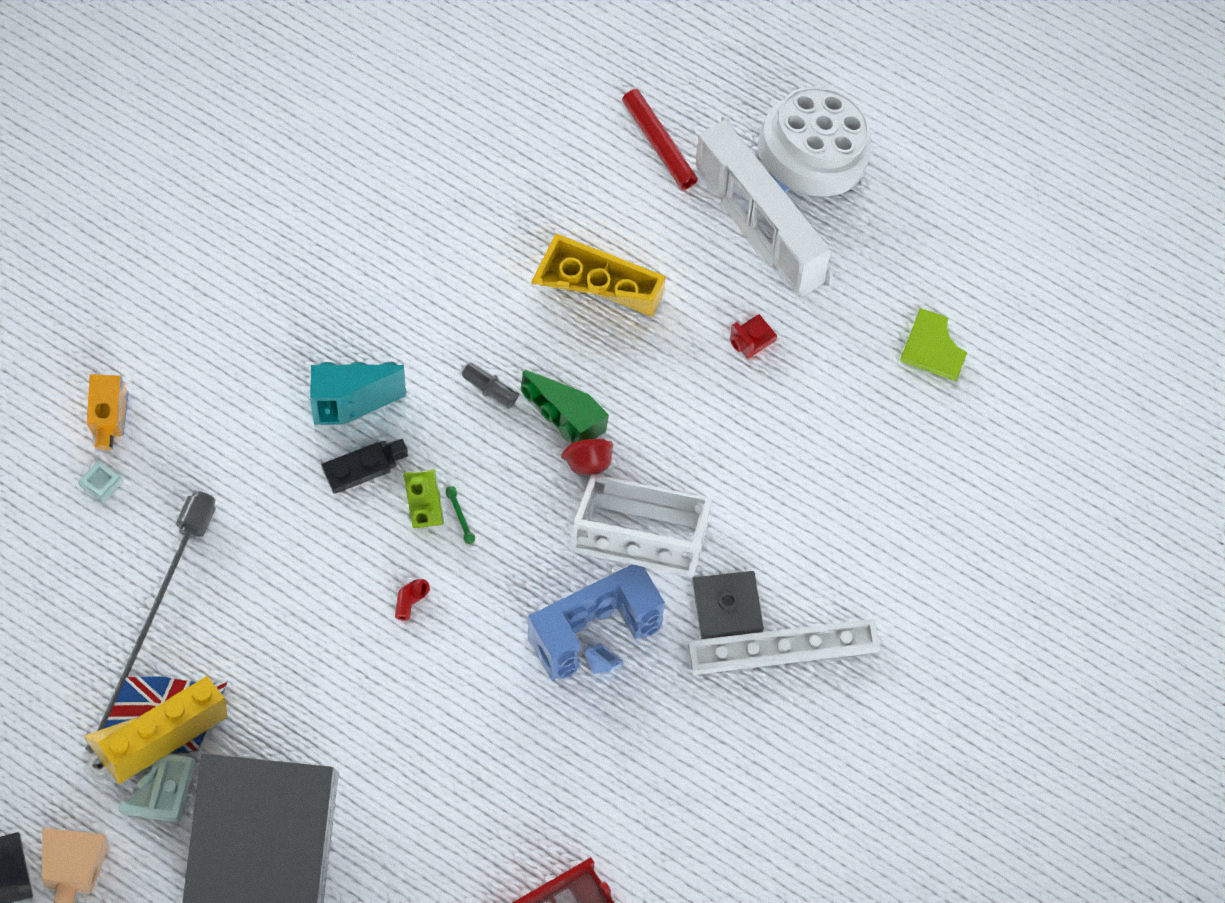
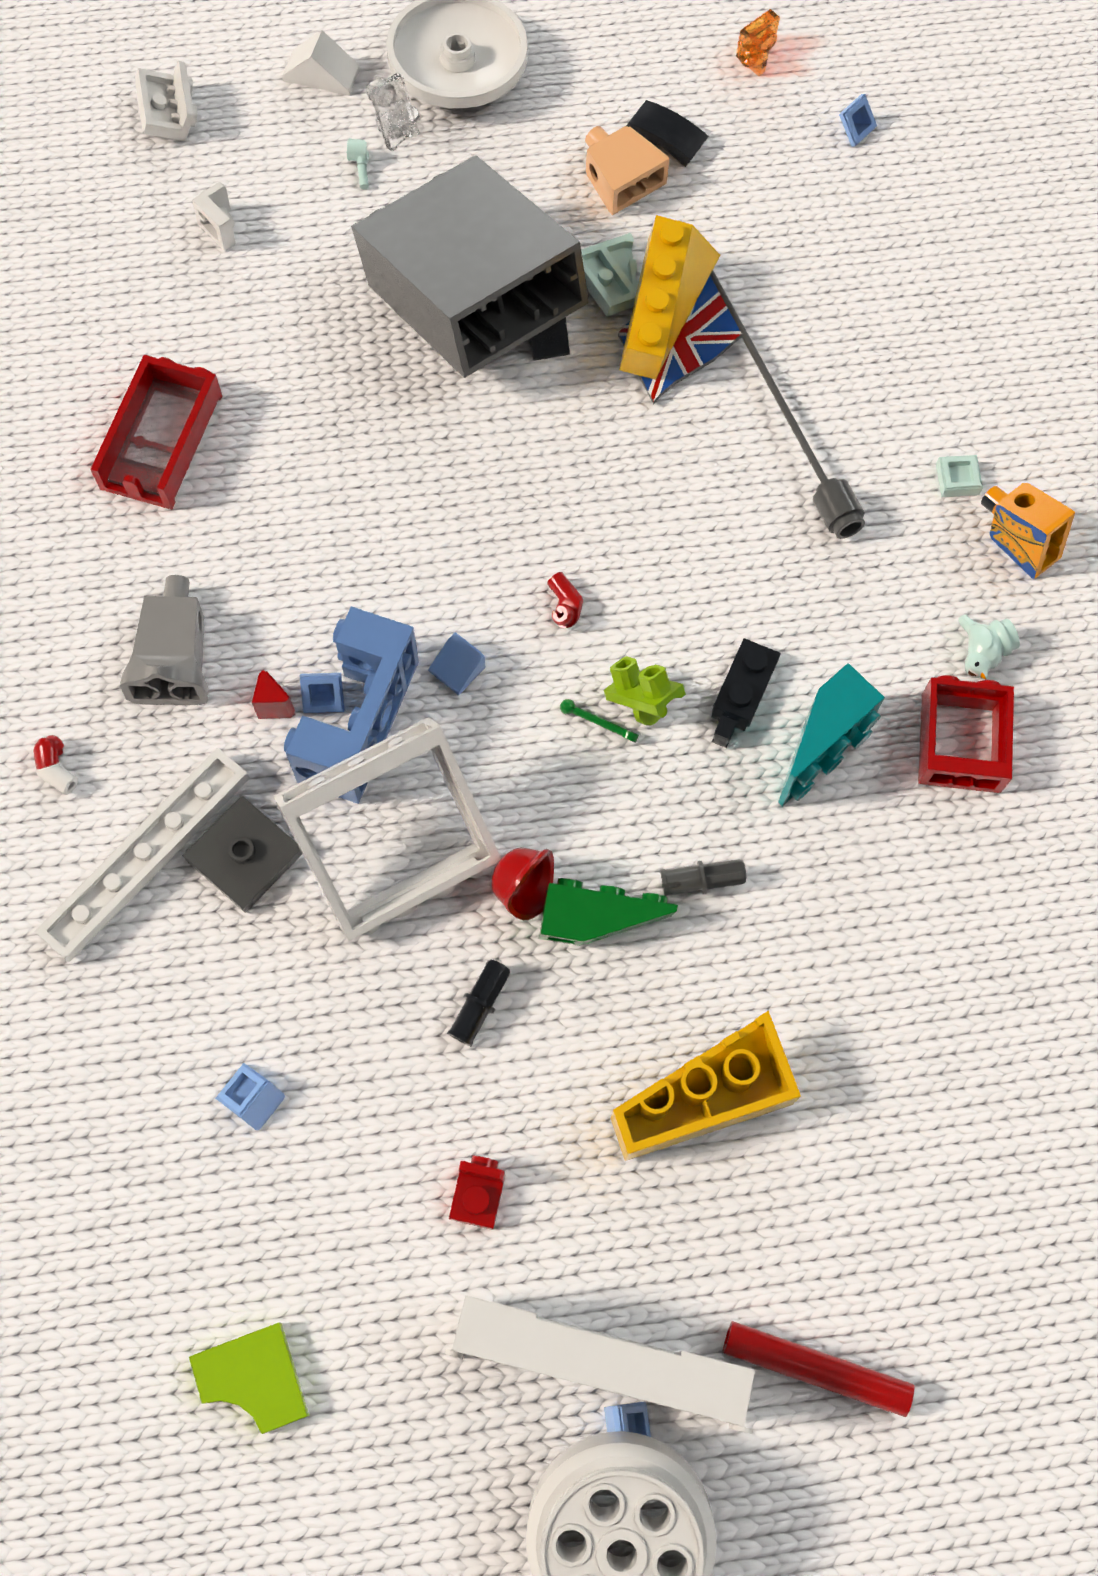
camera: 140 degrees right, 5 degrees up
(204, 372) = (988, 644): none -> light aqua animal
(274, 305) = (959, 771): none -> red window
(509, 612) = (457, 664): none -> light blue slope
(638, 676) = (270, 699): none -> red slope
(669, 420) = (479, 1002): none -> black axle
(671, 757) = (168, 650): none -> light grey piece
(798, 748) = (48, 767): none -> arm
(830, 476) = (250, 1097): none -> light blue slope

